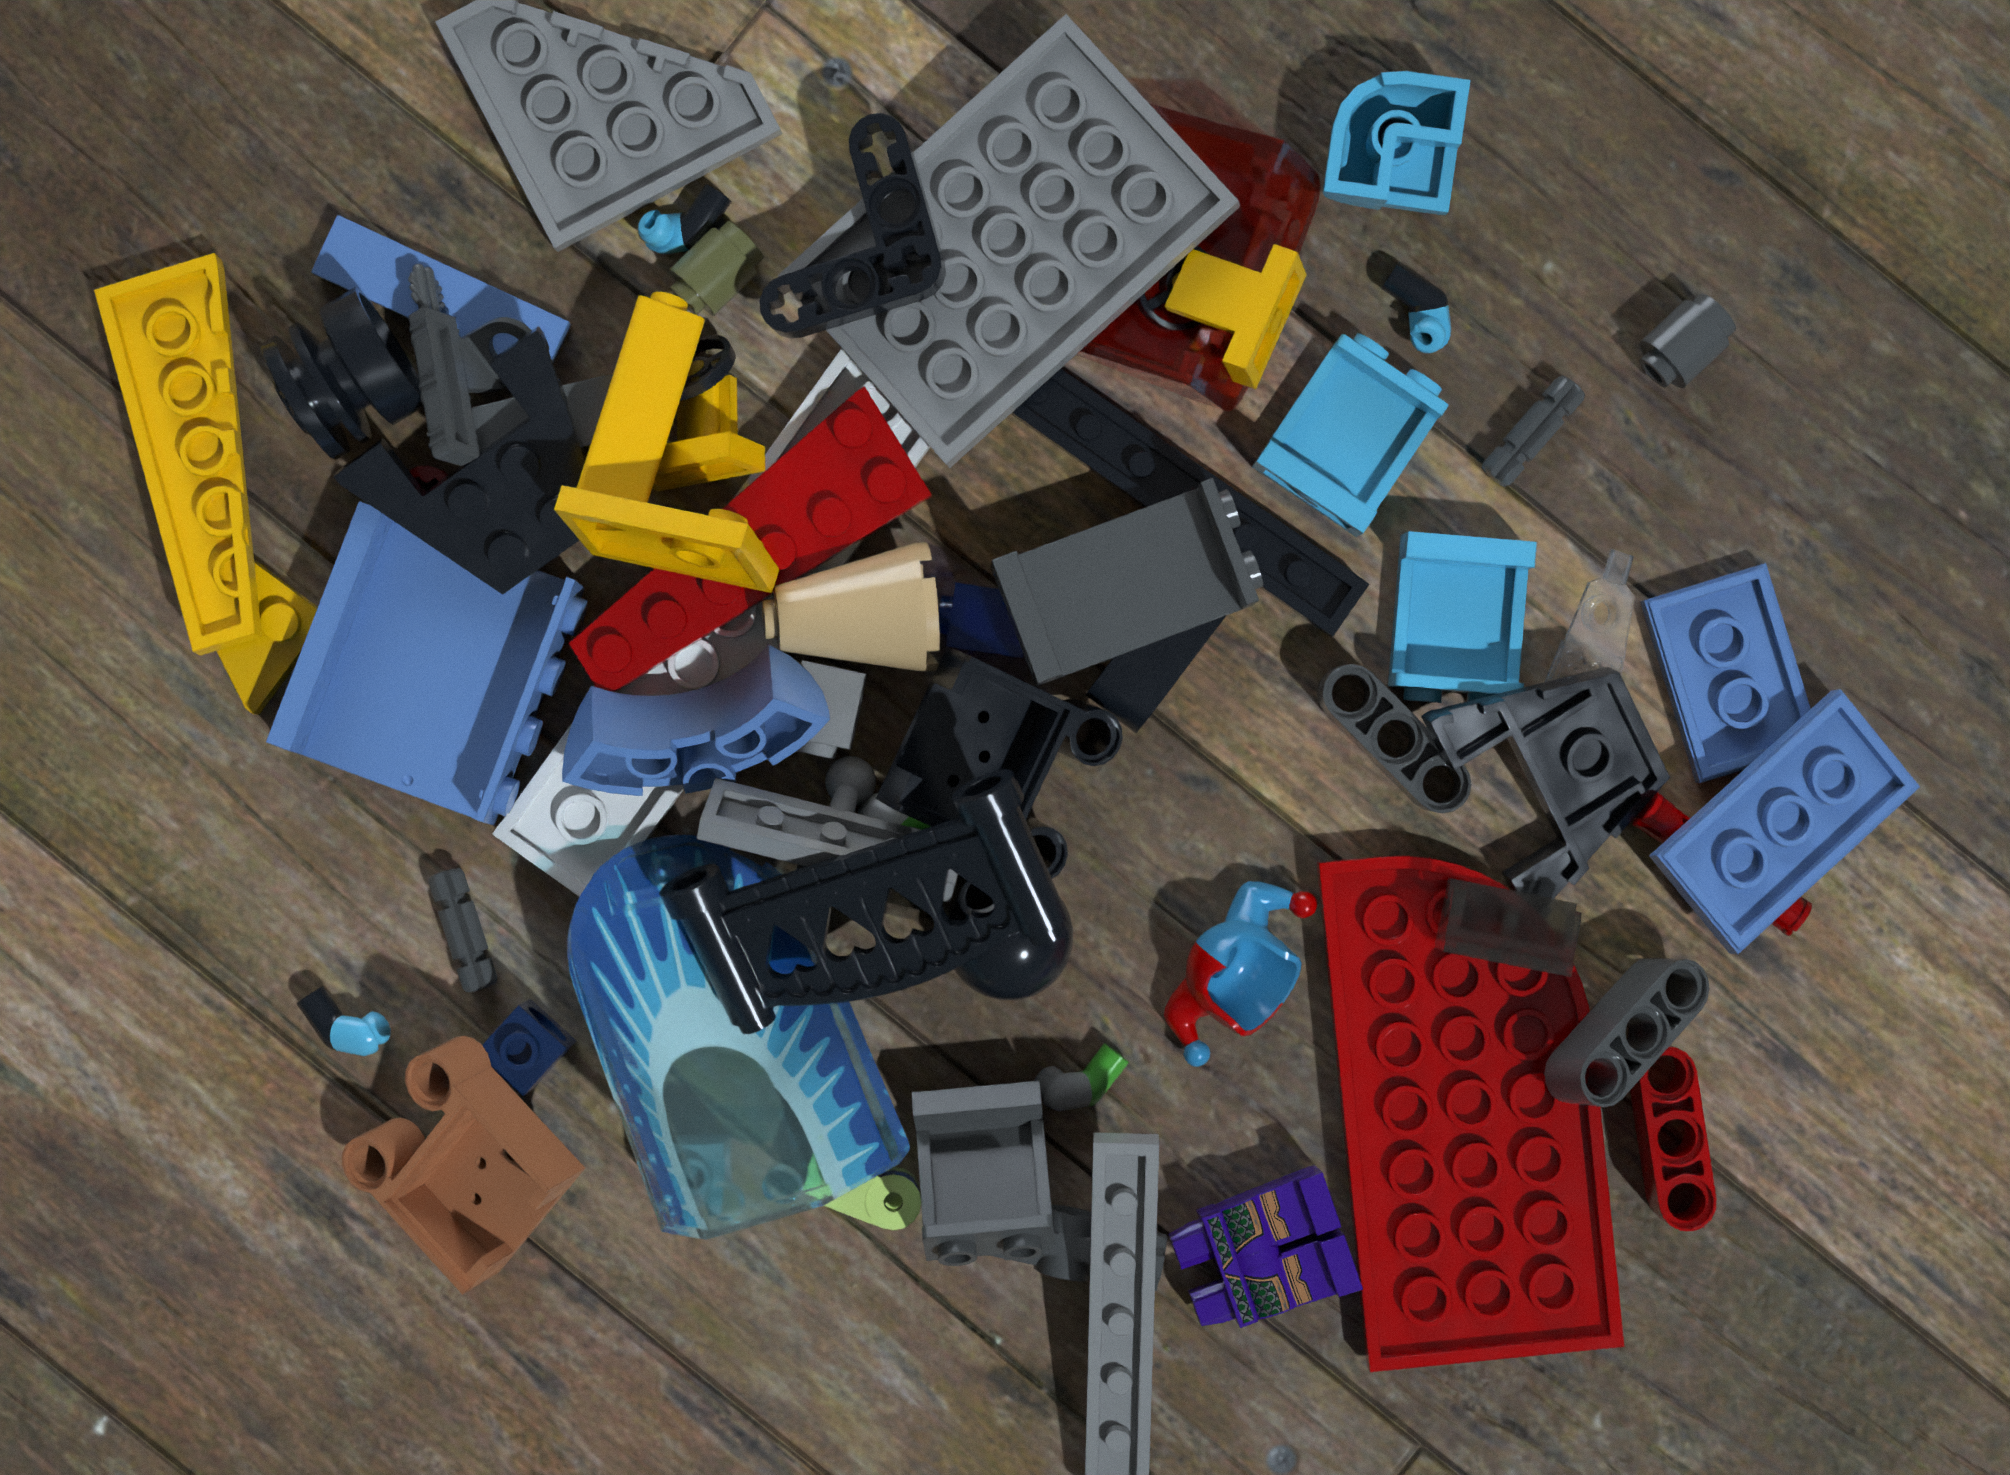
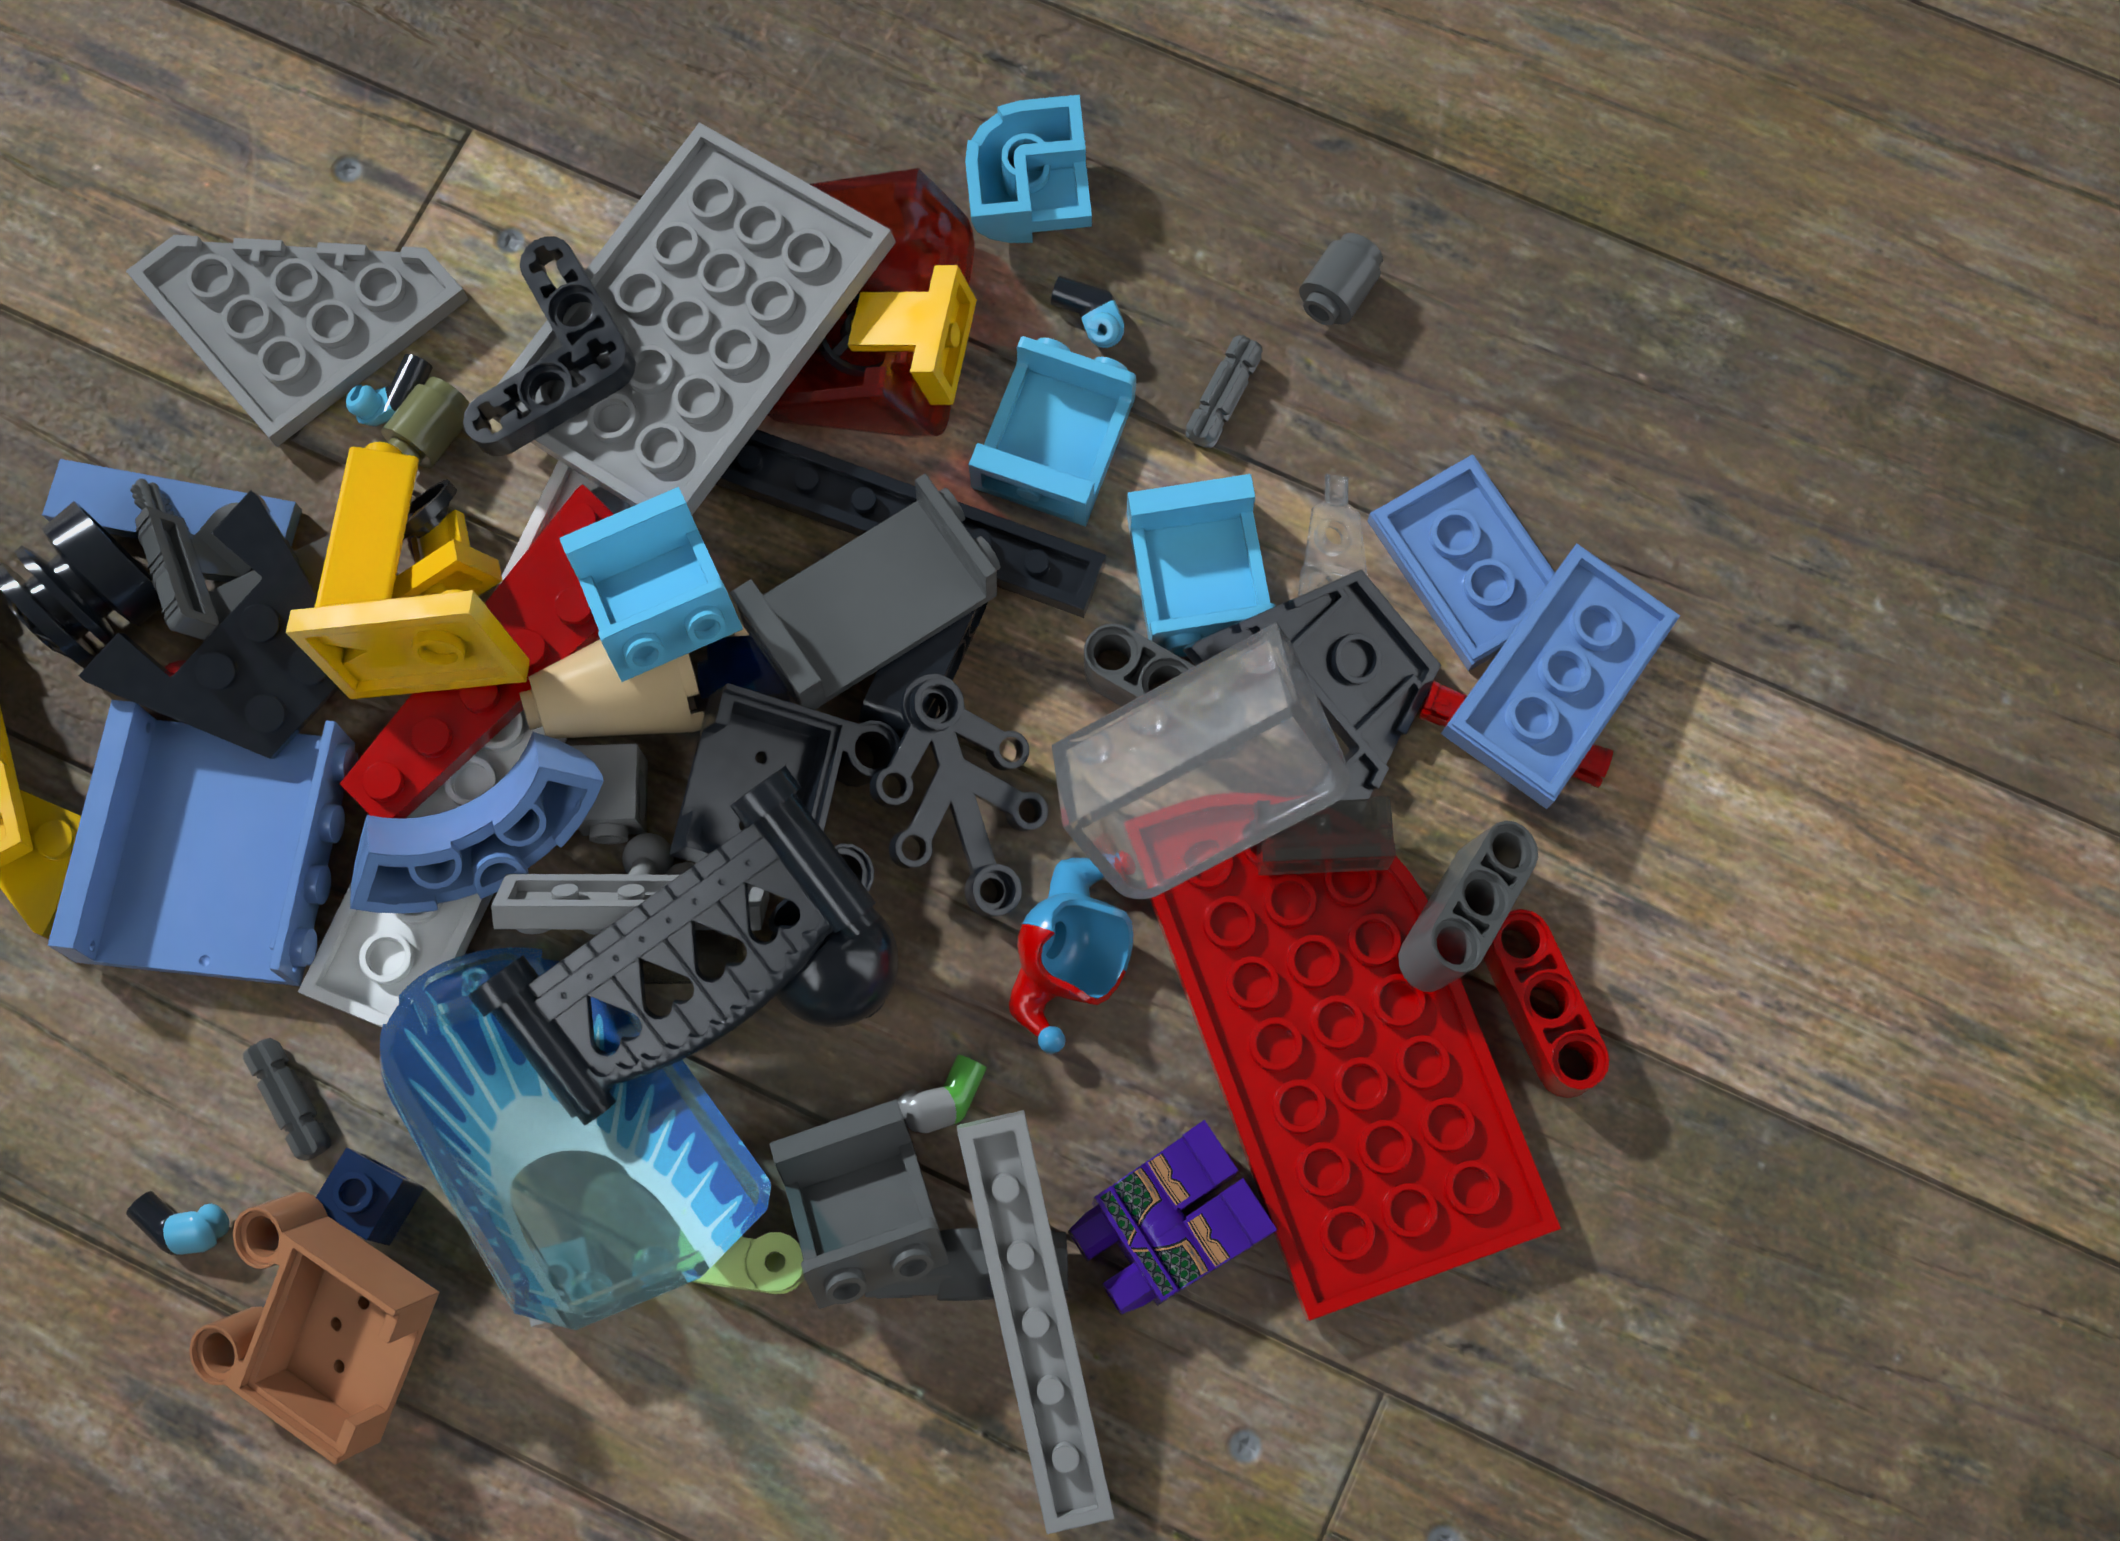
camera: 10 degrees left, 15 degrees down
(917, 535) = (650, 584): none -> medium azure panel
(1165, 791) = (957, 785): none -> black plant
(1406, 845) = (1200, 767): none -> clear windscreen

